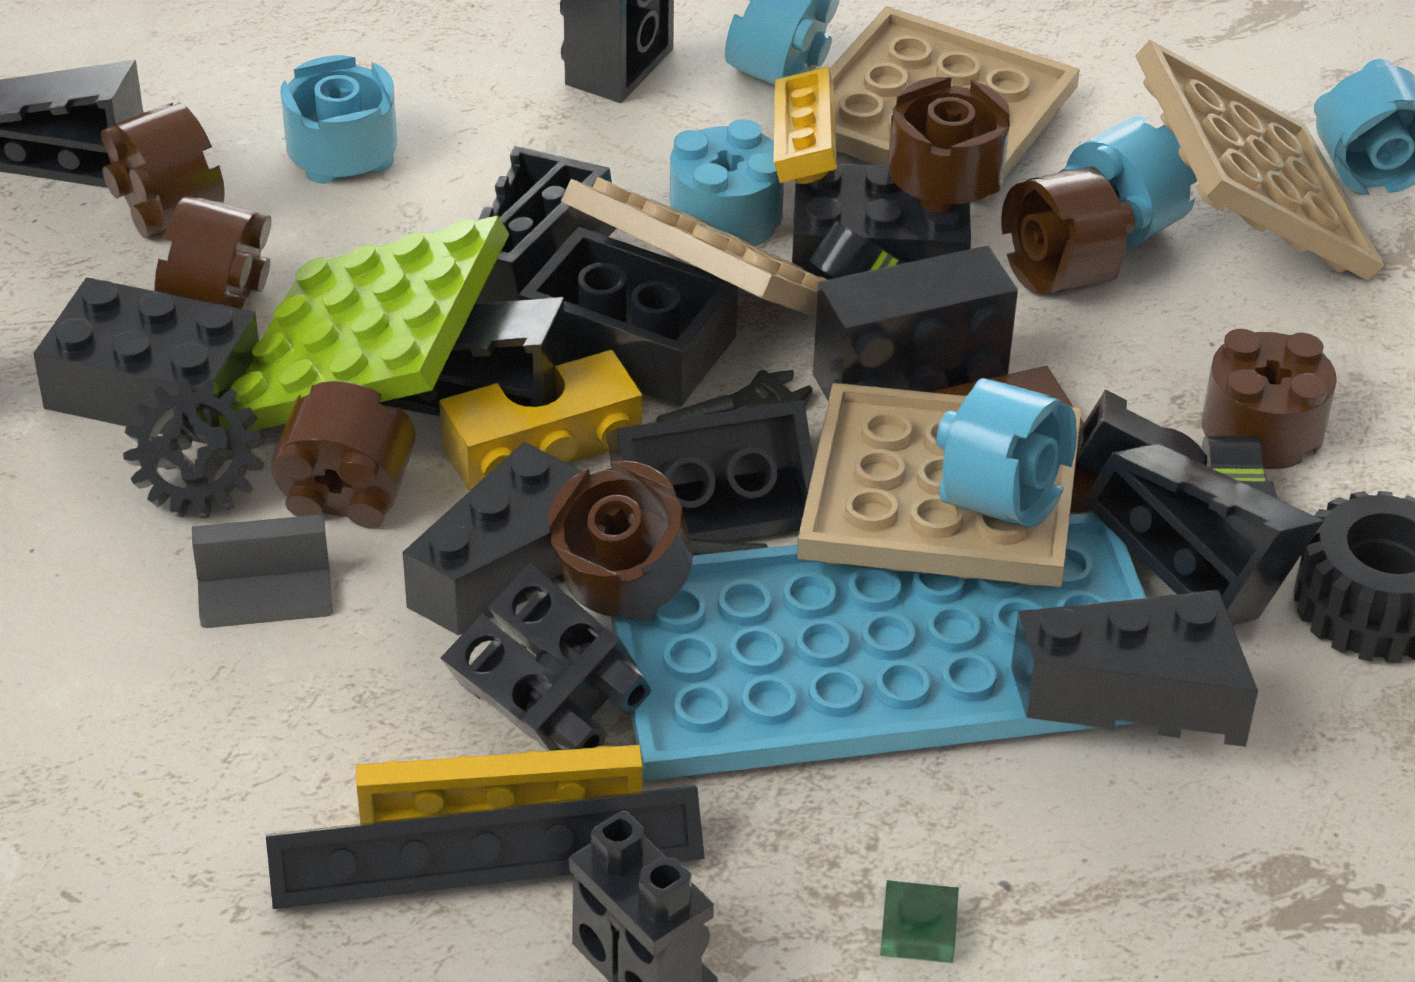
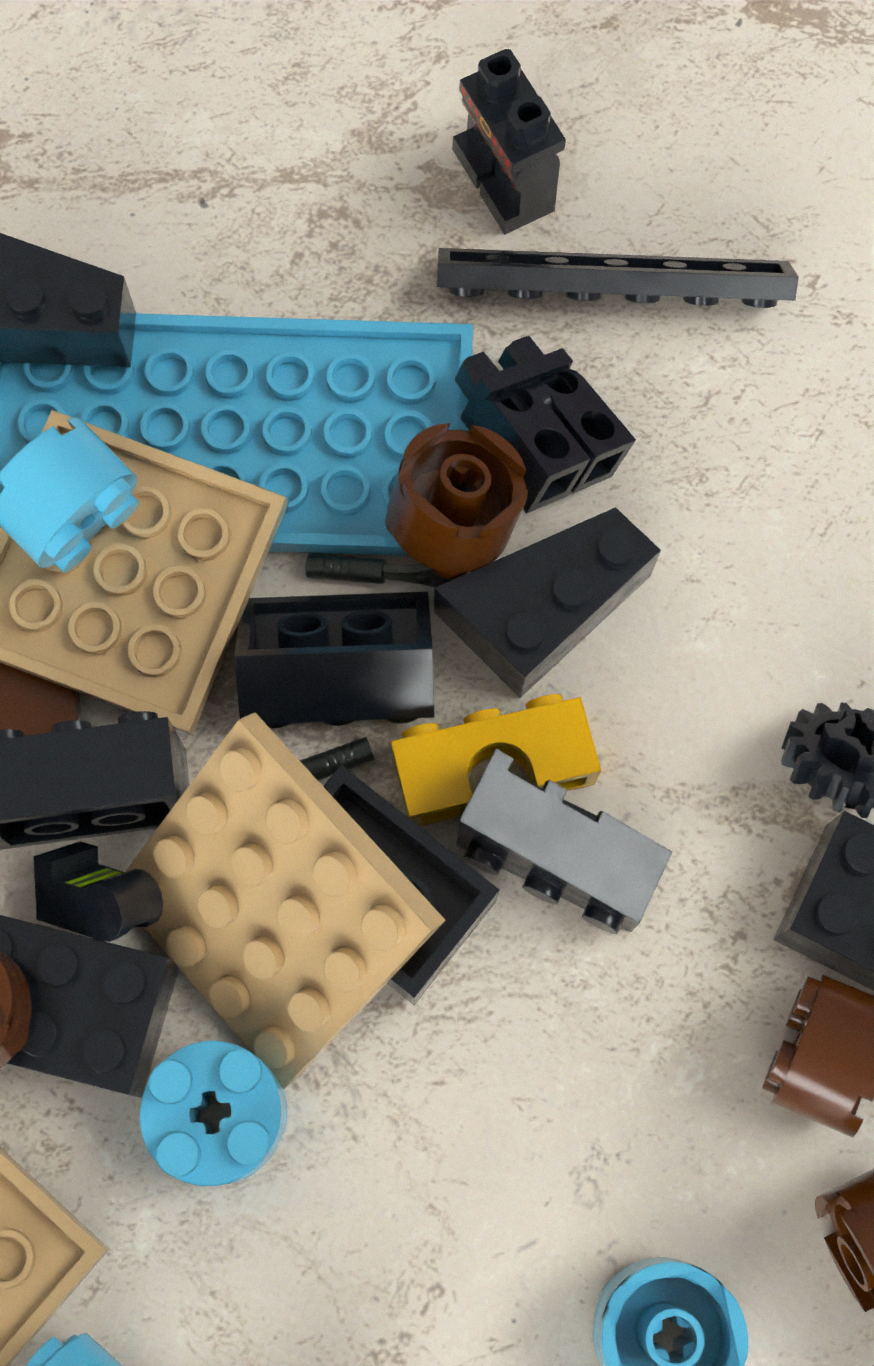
camera: 170 degrees left, 30 degrees up
(262, 571) = (785, 614): dark grey panel -> none
(343, 454) = (706, 713): reddish brown brick -> none
(371, 318) = (666, 894): lime plate -> none
(493, 781) = (599, 327): yellow plate -> none
(535, 217) = (456, 1057): black wedge -> none
(804, 126) = (100, 1146): yellow plate -> none
(919, 921) = (283, 170): clear green plate -> none

